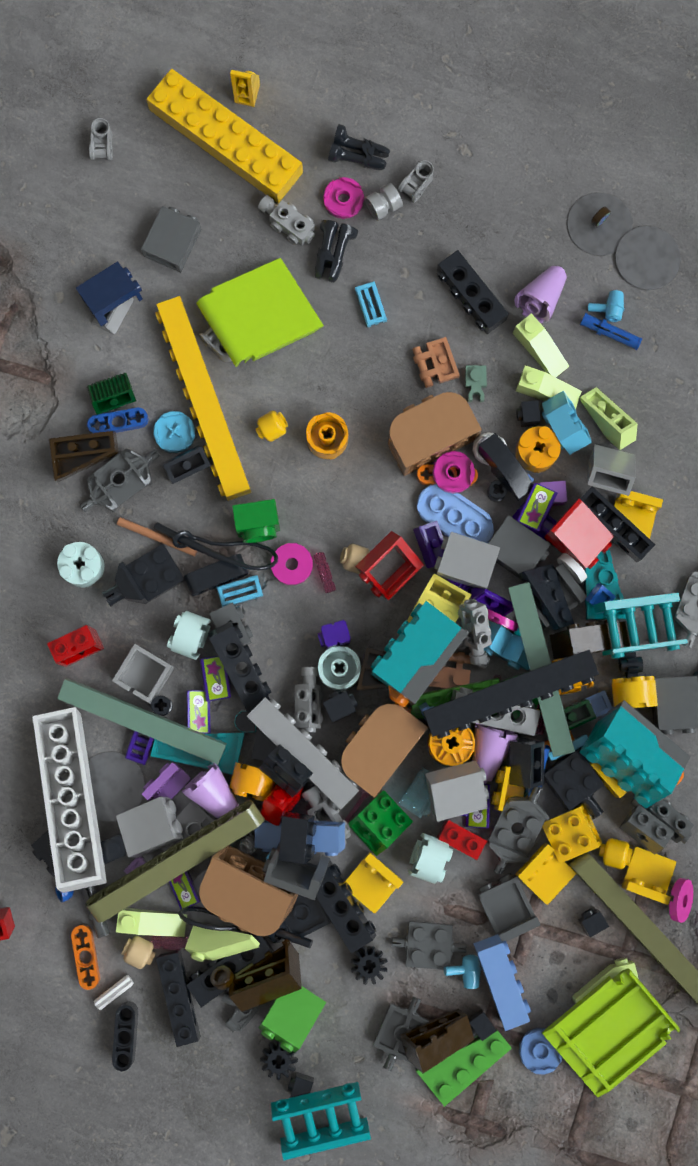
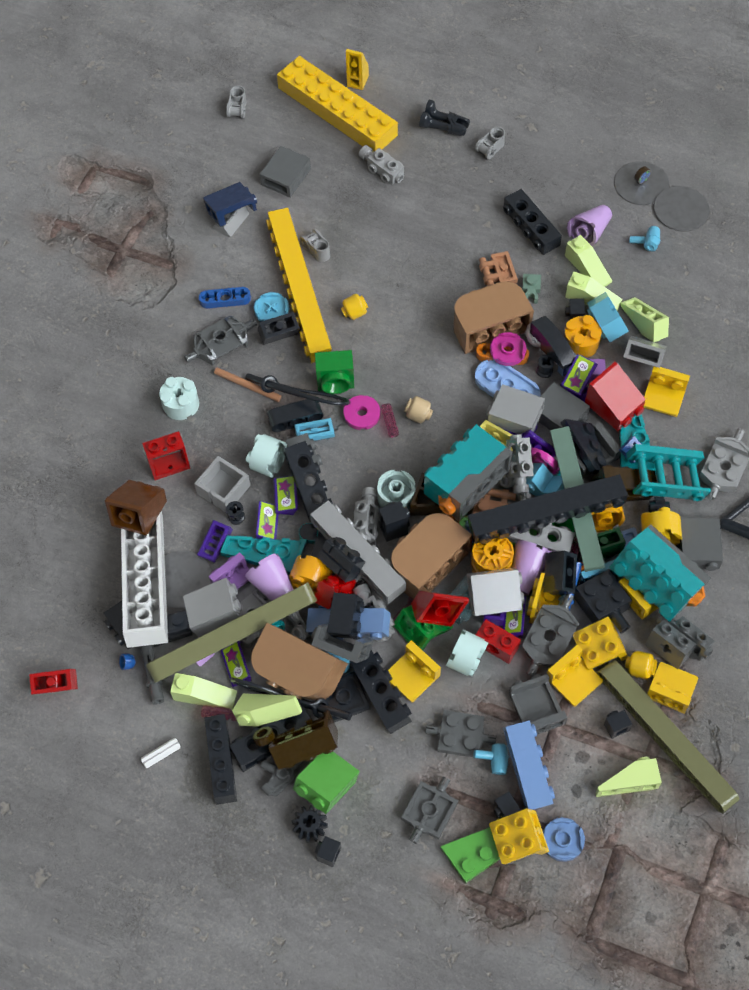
camera: 10 degrees right, 20 degrees down
(50, 720) = (135, 506): none -> reddish brown slope
(80, 452) = (191, 314): dark brown wedge -> none
(93, 971) = (133, 734): orange beam -> none
(111, 393) = (222, 274): dark green brick -> none
(121, 1046) = (166, 800): black beam -> none
(138, 952) = (188, 716): tan head -> none
(142, 721) = (223, 522): sand green tile -> none
(145, 578) = (232, 414): black plate -> none
(259, 312) = (352, 224): lime piece -> none
(324, 424) = (401, 315): light orange brick -> none
(325, 257) = (415, 194): black piece -> none
(325, 1138) = (336, 899): teal fence -> none
(334, 635) = (394, 459): dark purple brick -> none
(343, 209) = (433, 160): dark pink tile -> none
(375, 320) = (449, 238): medium azure tile -> none
(376, 968) = (403, 737): black gear -> none
(385, 200) = (462, 154): light grey wheel -> none
(394, 812) = (438, 608): none -> red slope
(400, 576) = (461, 404): red window -> none
(430, 542) = (482, 397): dark purple slope -> none
(437, 1040) = (462, 811): dark brown wedge -> none
(497, 1060) = (518, 836): none -> yellow bracket
(573, 567) = (610, 425): white piece -> none
(588, 320) = (641, 253): blue pin -> none
(611, 1031) = (631, 821): lime piece -> none
(625, 533) = (658, 402): black brick -> none
(682, 900) = (702, 707): dark pink tile -> none

